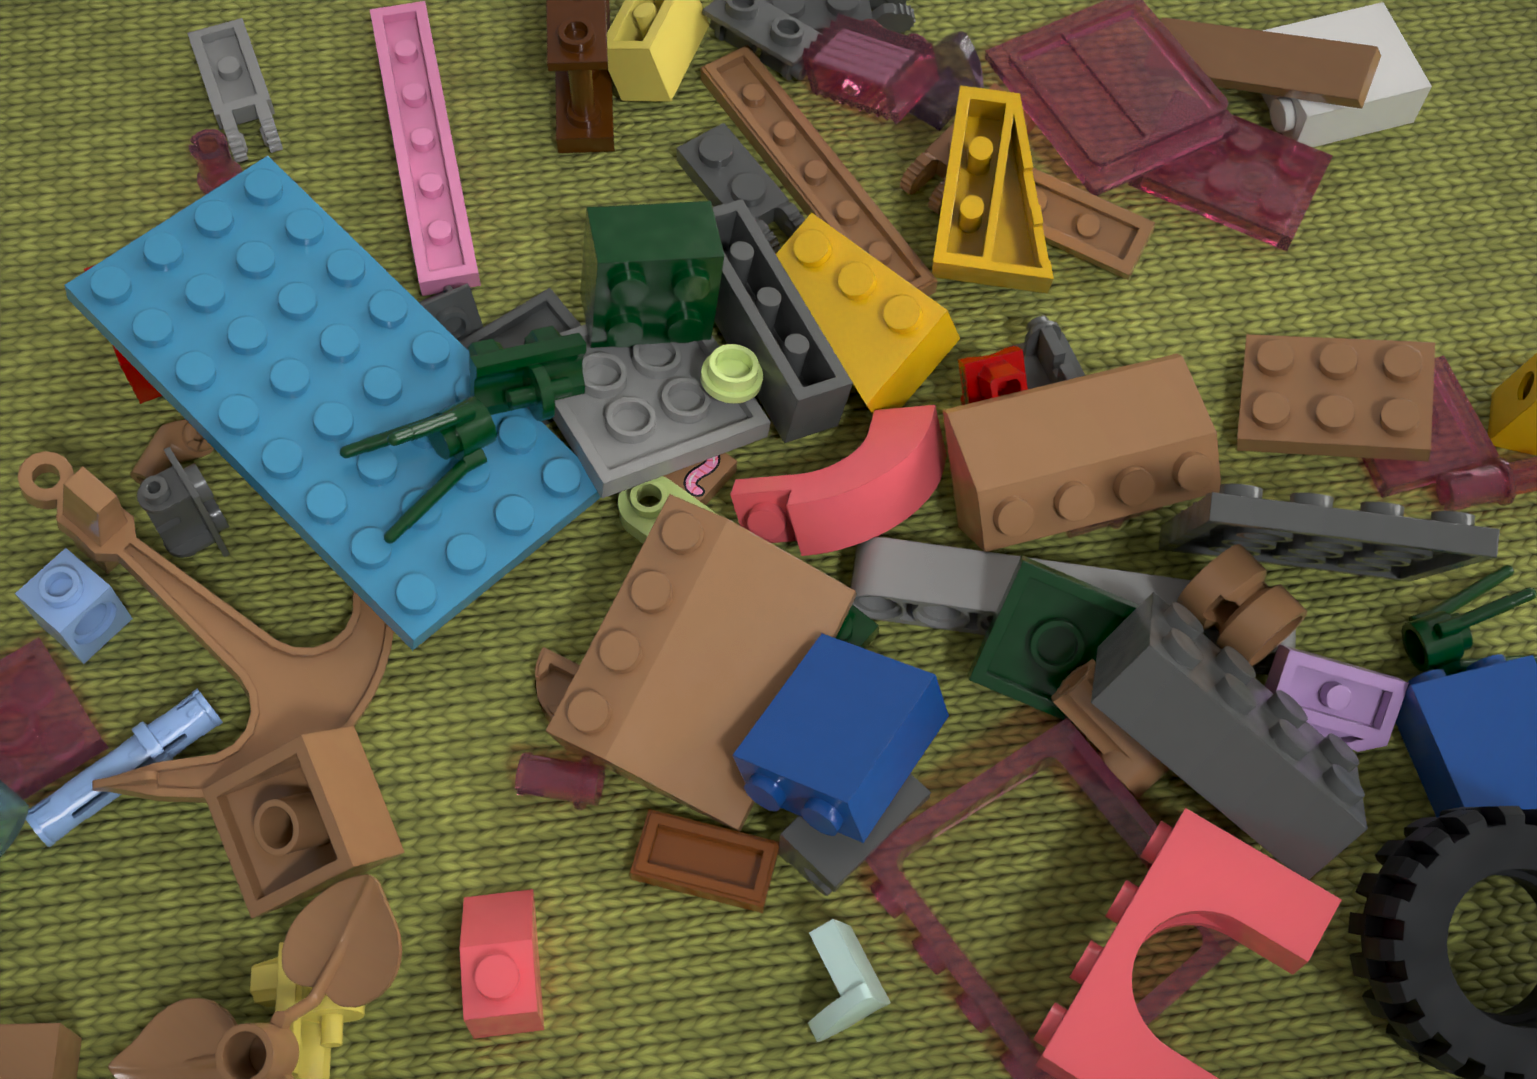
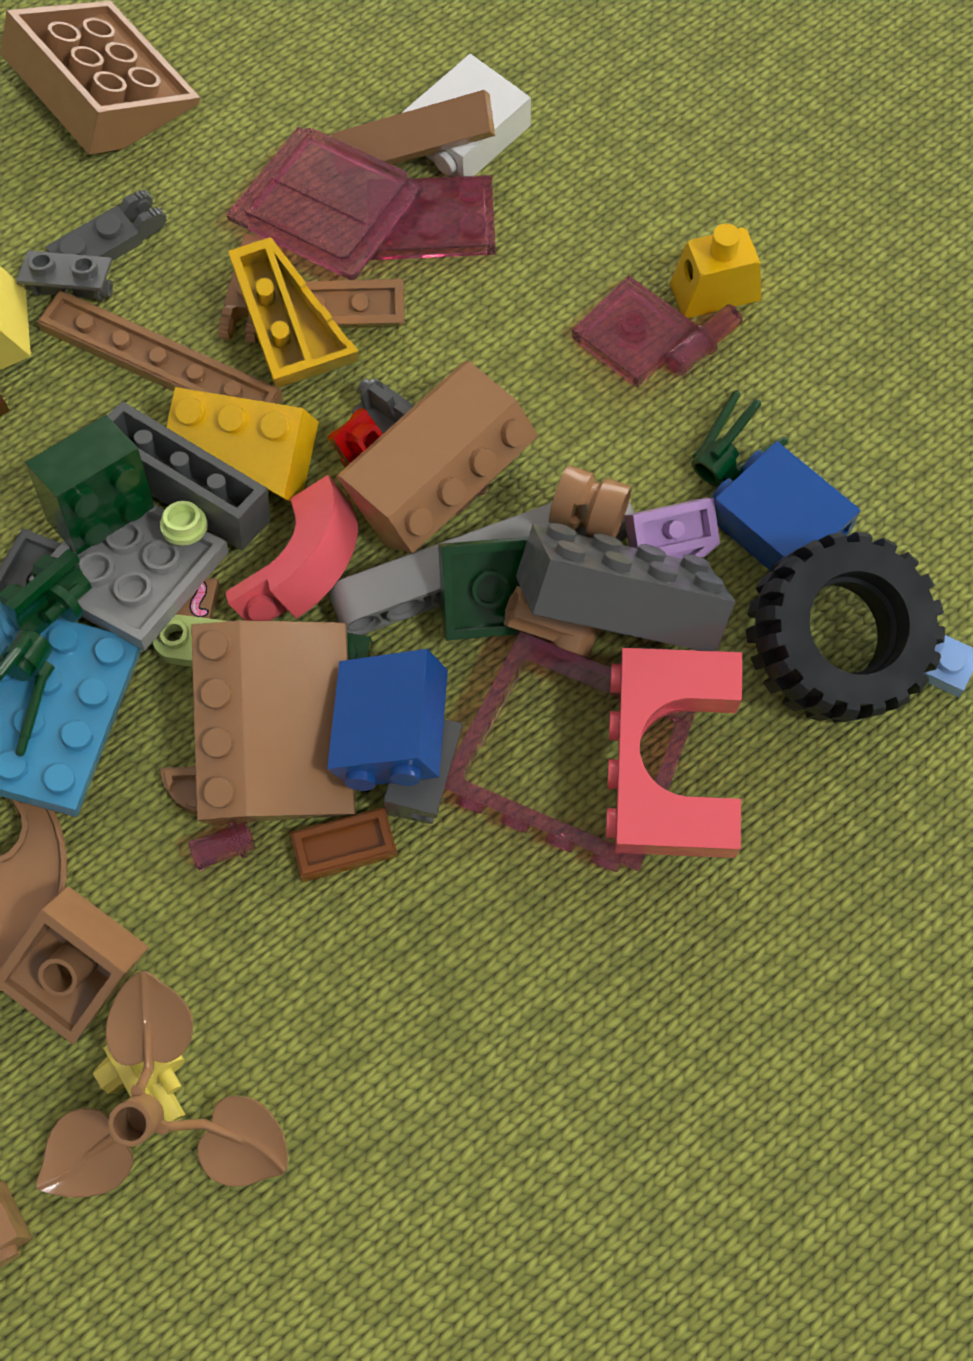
camera: 25 degrees left, 5 degrees up
(500, 965) = (252, 979): coral slope -> none
(730, 173) = (104, 388): dark grey hinge -> none
(852, 976) = (475, 862): light aqua tile -> none
(870, 67) = (155, 264): clear pink brick -> none
(956, 66) = (207, 249): tile -> none
(1329, 539) = (614, 435): dark grey plate -> none
(1337, 397) = (577, 337): medium nougat plate -> none

